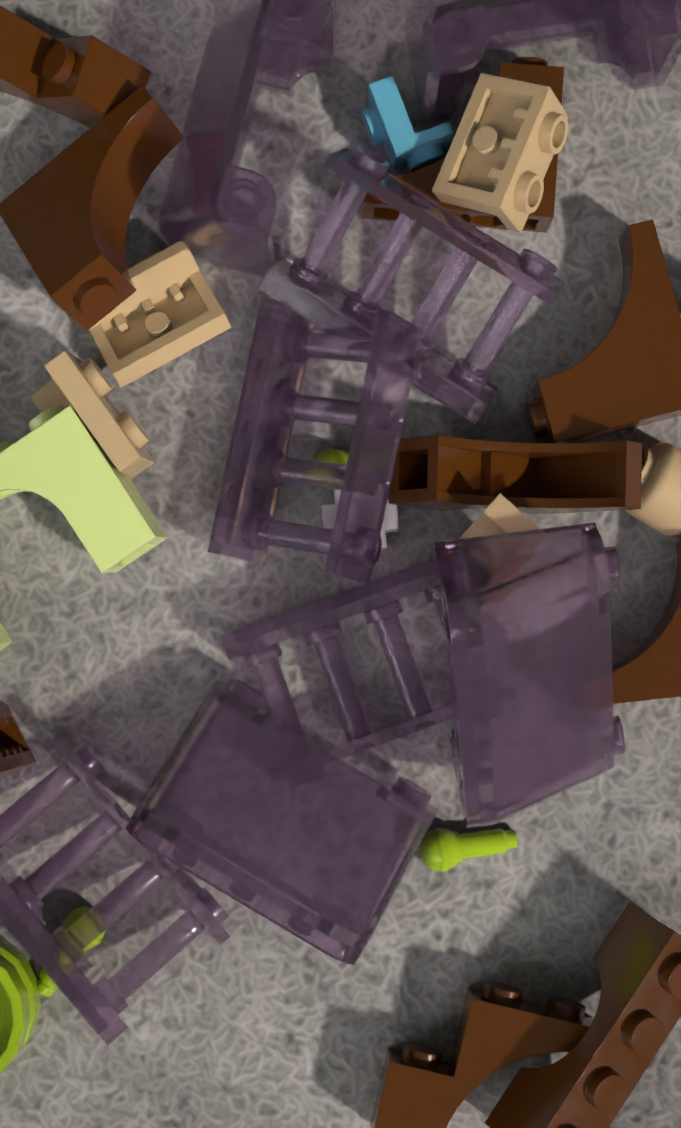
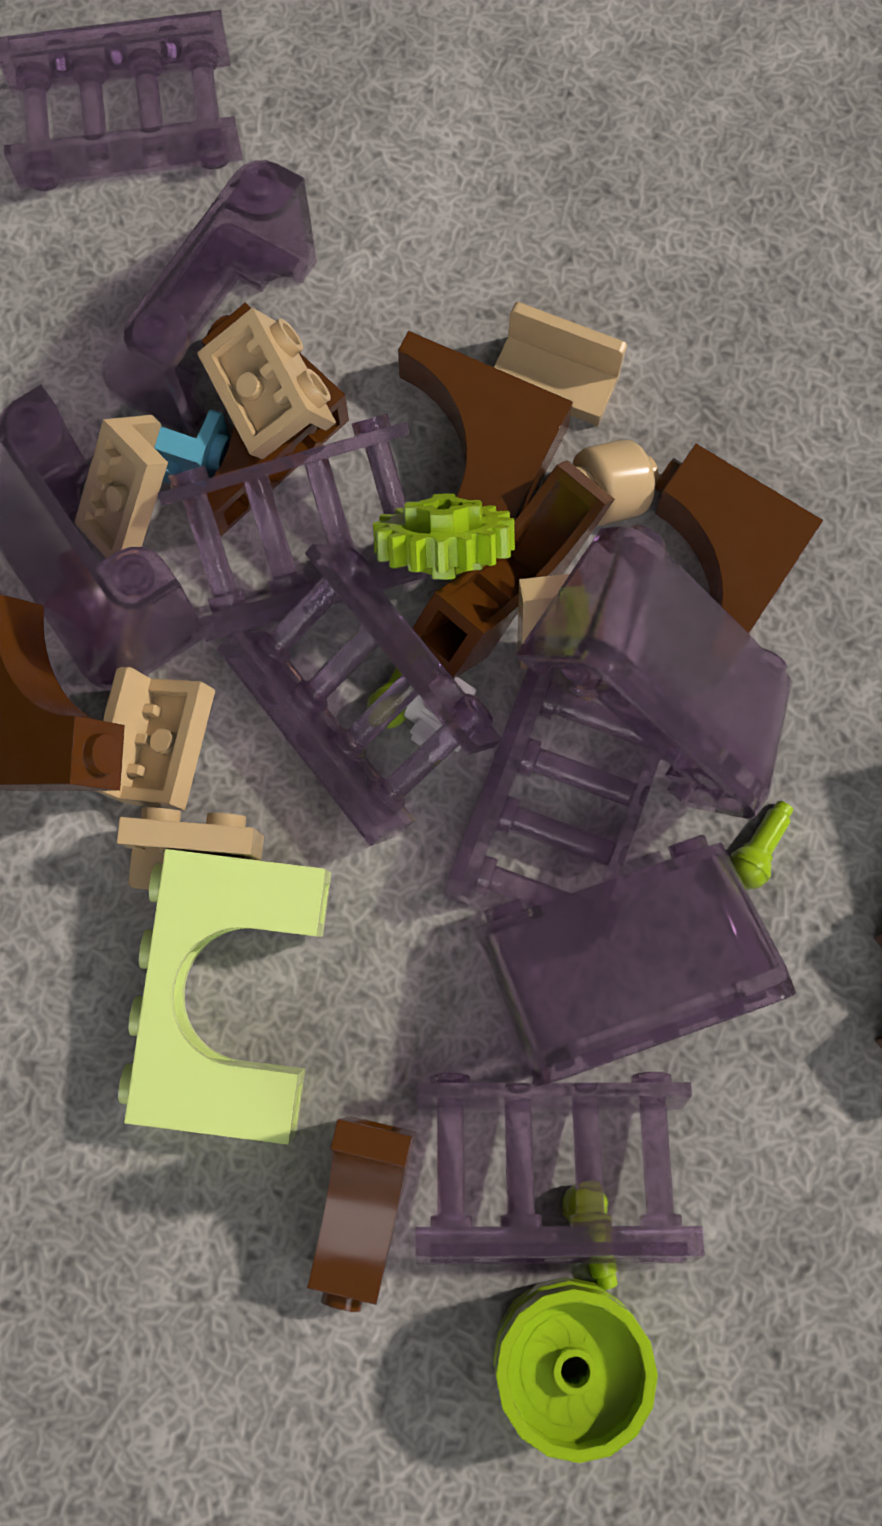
camera: 50 degrees left, 10 degrees down
(321, 115) = (122, 484): none -> tan bracket
(488, 404) = (444, 536): none -> lime gear

